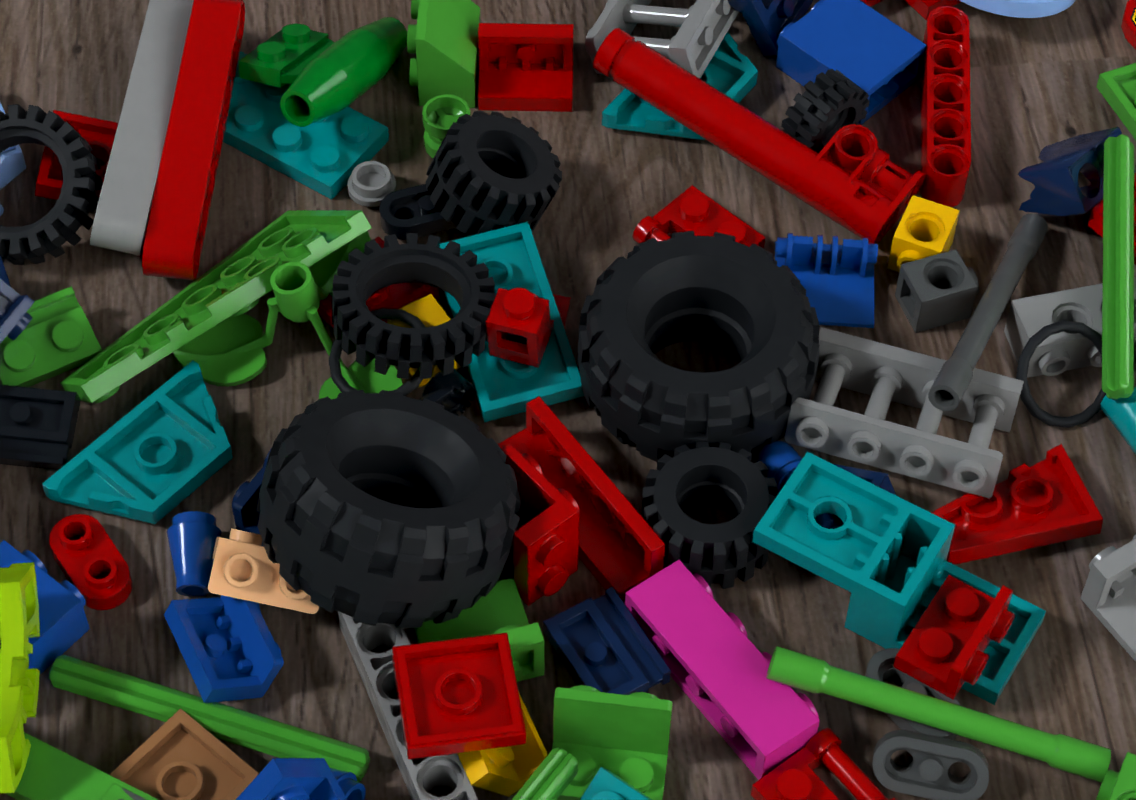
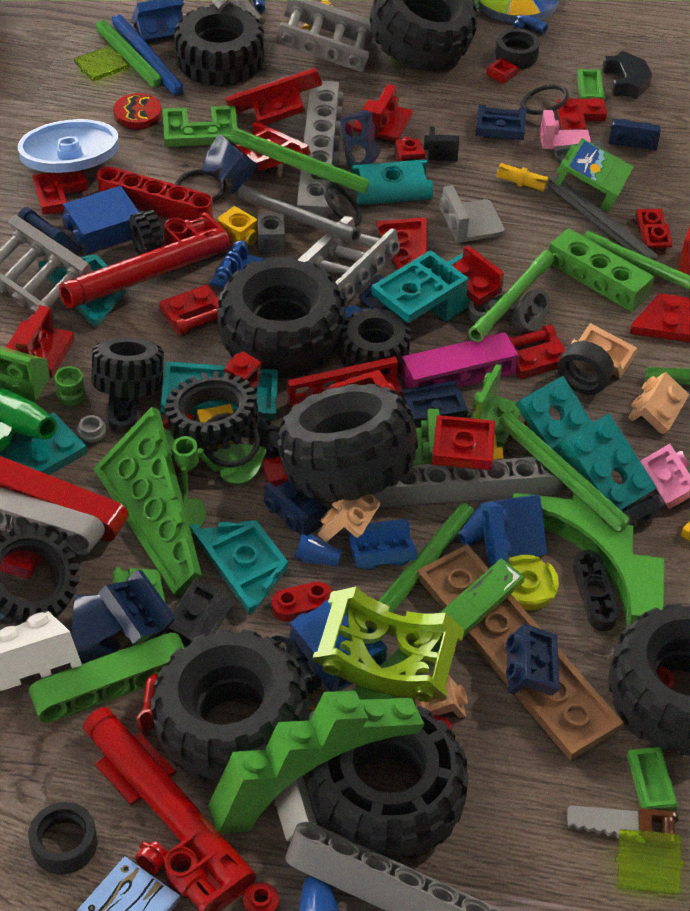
camera: 75 degrees left, 5 degrees down
(993, 139) = (199, 171): none -> black piece

